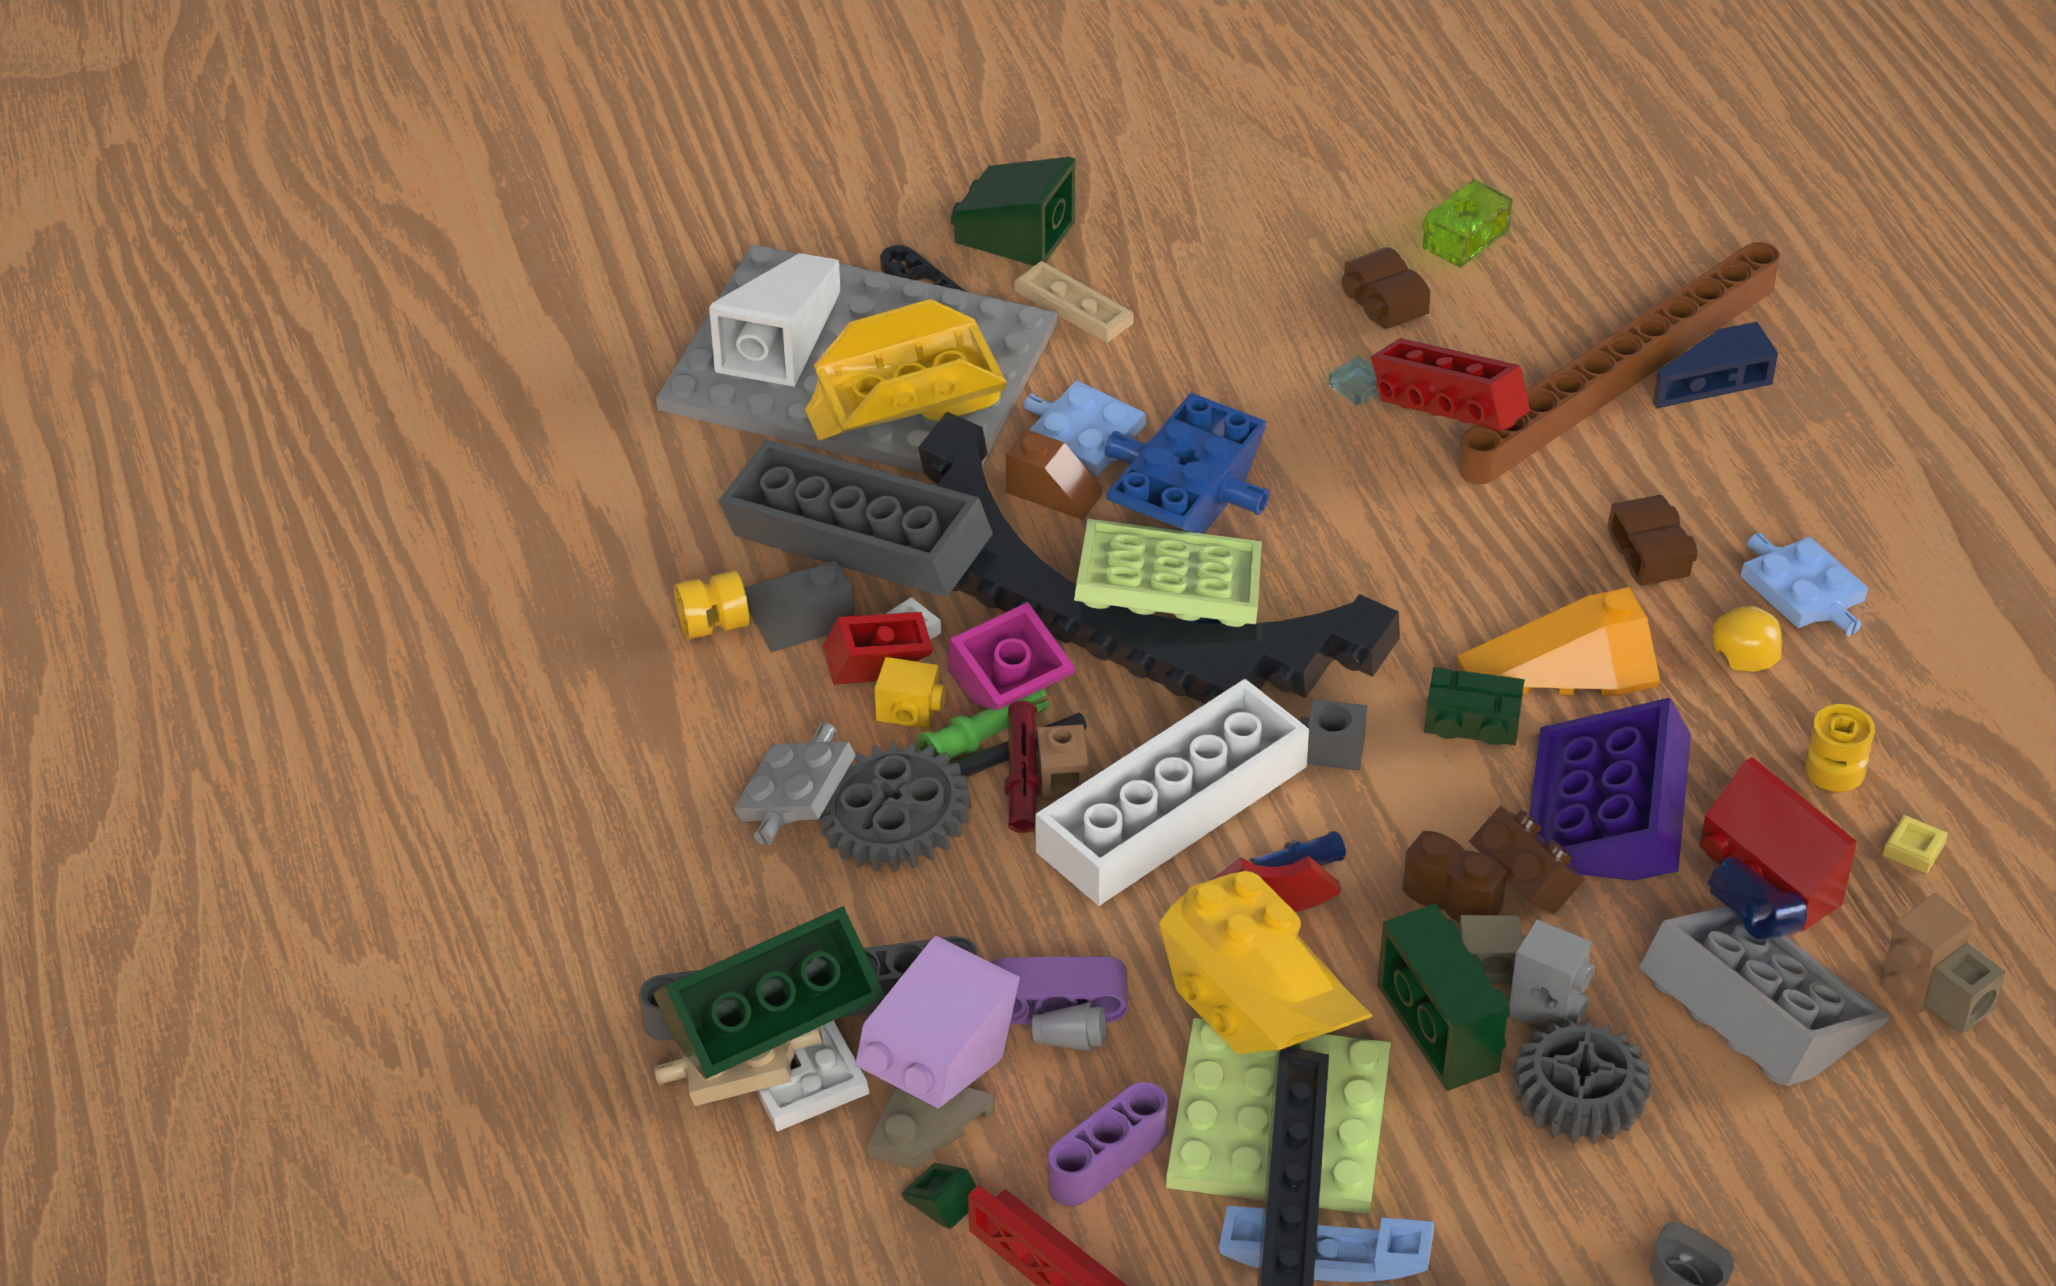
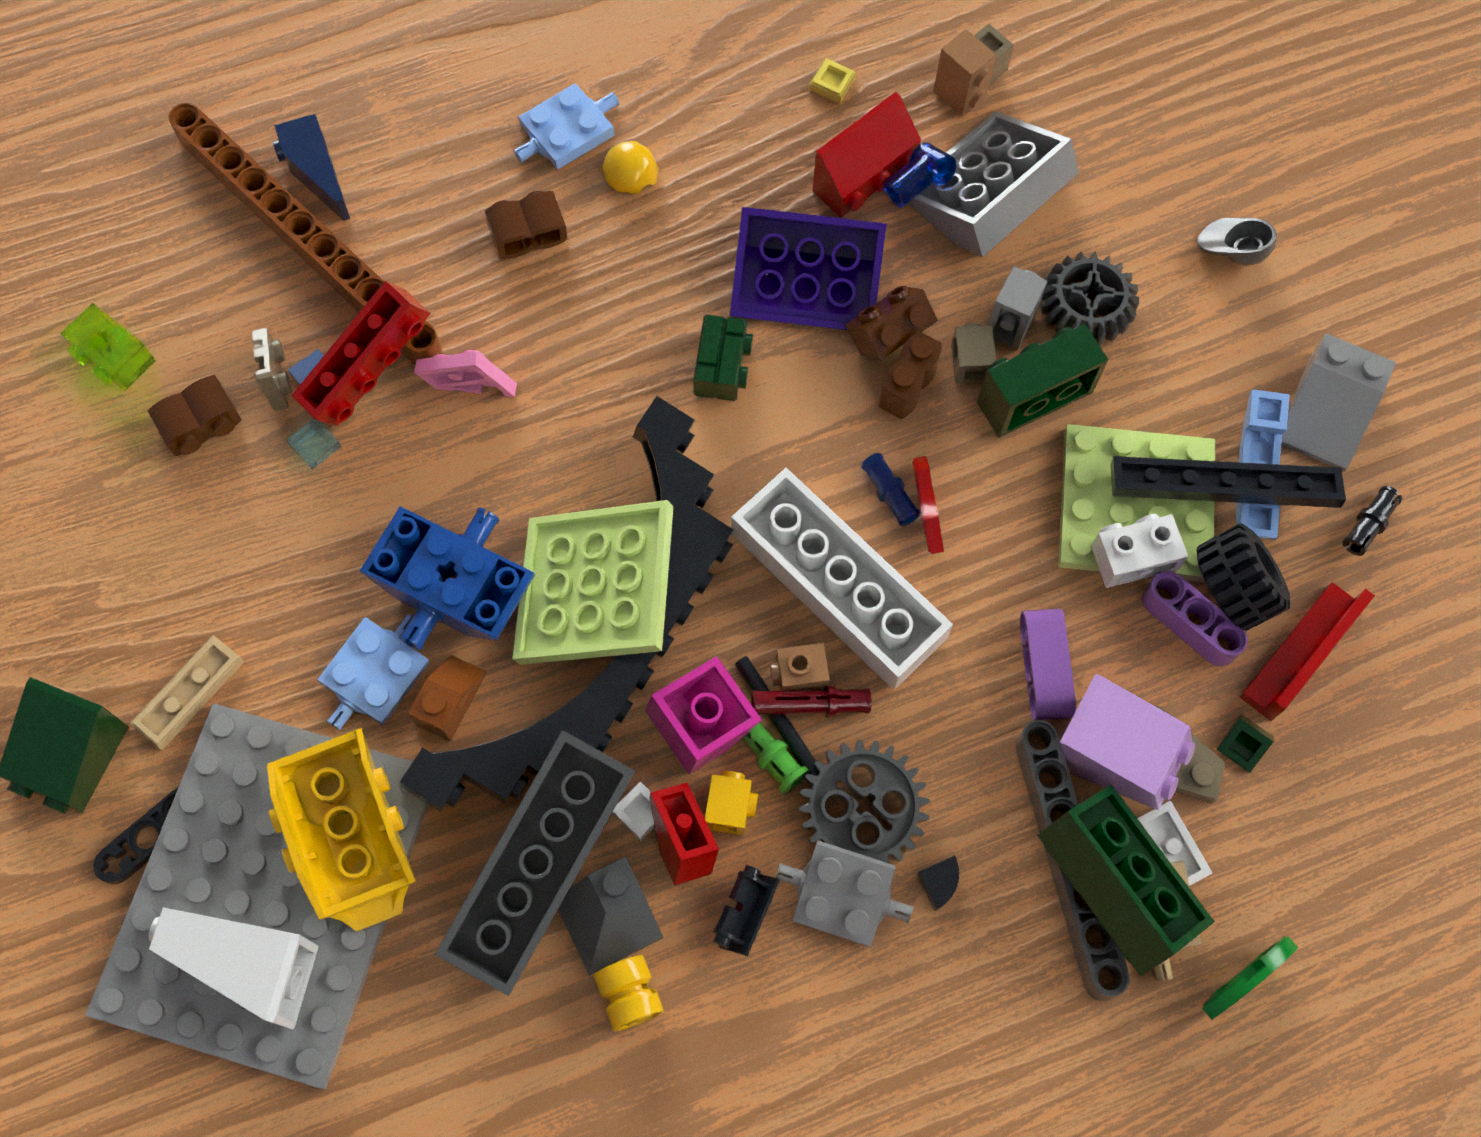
camera: 95 degrees left, 25 degrees up
(646, 1142) = (1249, 977): none -> green tile
(771, 694) = (740, 926): none -> black hinge
(800, 877) = (940, 881): none -> black tile
(1072, 1027) = (1084, 650): light grey cone -> none
(1177, 1191) = (1243, 577): none -> black tyre
(1196, 1069) = (1138, 549): none -> white brick
(1248, 969) = (1052, 500): yellow slope -> none
(1336, 734) = (757, 445): dark grey brick -> none
(1443, 479) = (464, 372): none -> bright pink wing
(1445, 326) = (270, 377): none -> dark tan wing
(1581, 646) = (654, 286): light orange wedge -> none
(1839, 747) = (757, 111): yellow wheel -> none

